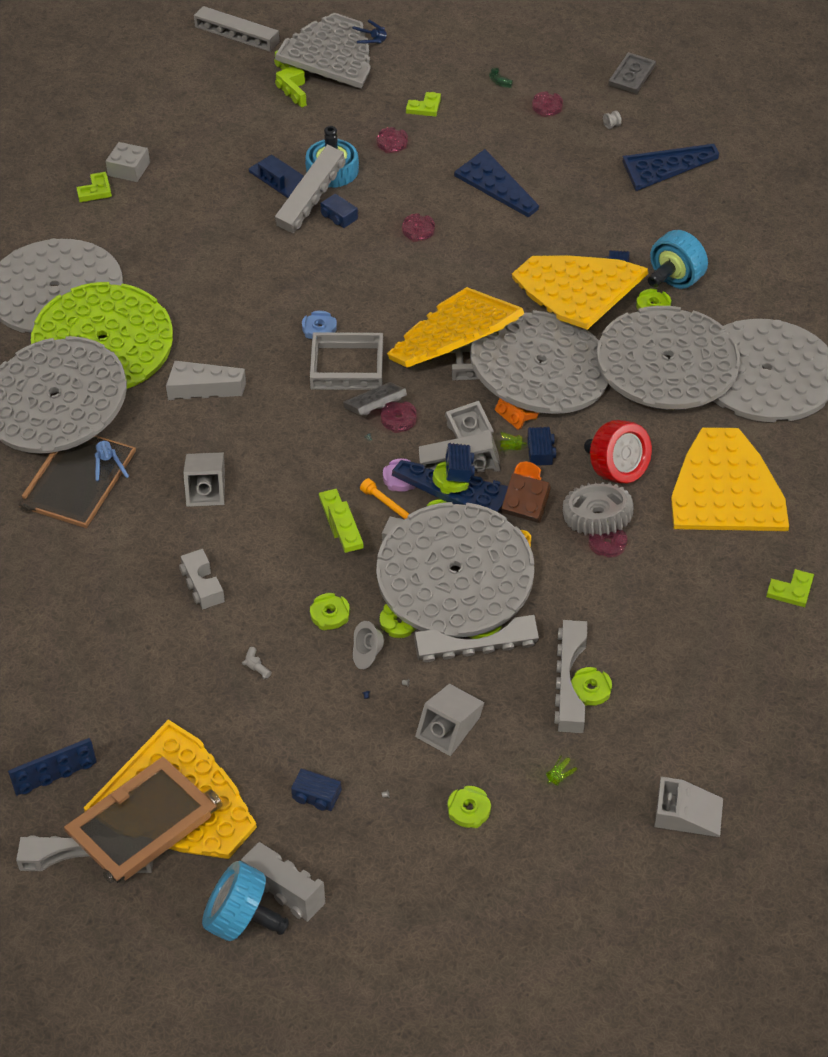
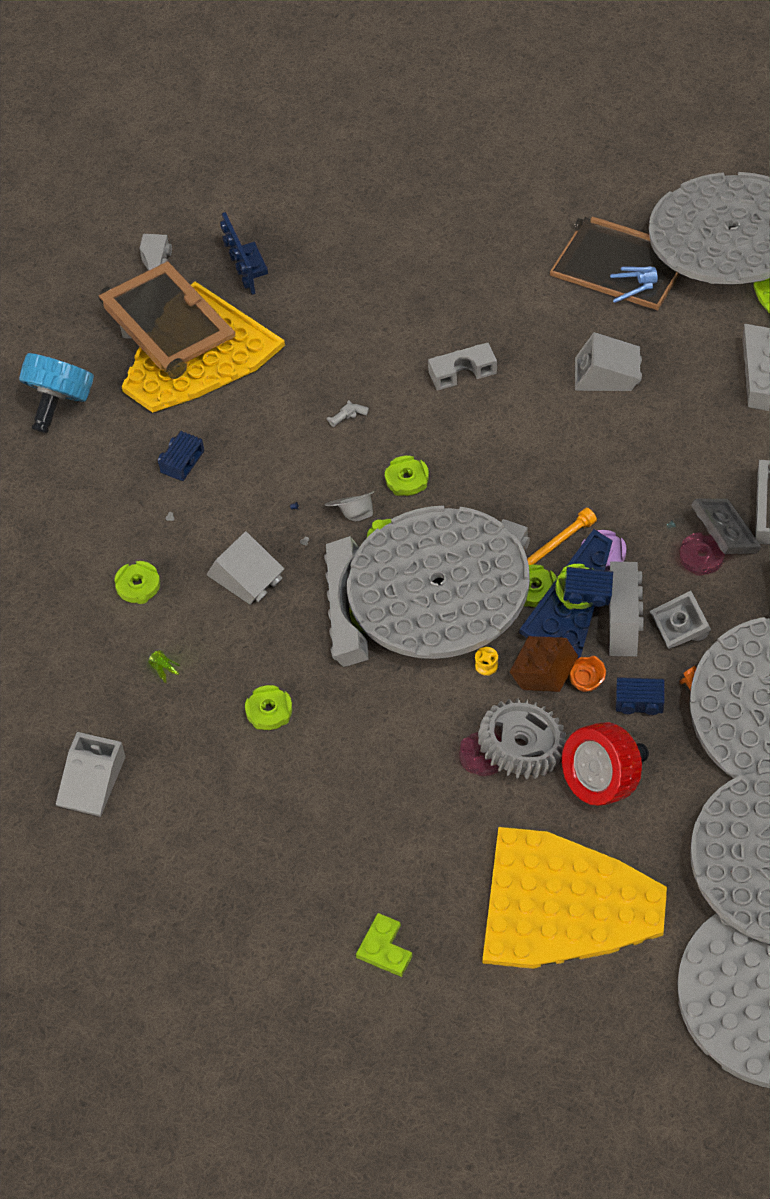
camera: 100 degrees right, 5 degrees up
(287, 883) = (80, 426): light grey wedge -> none
(341, 520) = (529, 483): lime bracket -> none
(514, 443) = (651, 669): clear neon green piece -> none
(571, 709) = (237, 682): light grey arch -> none

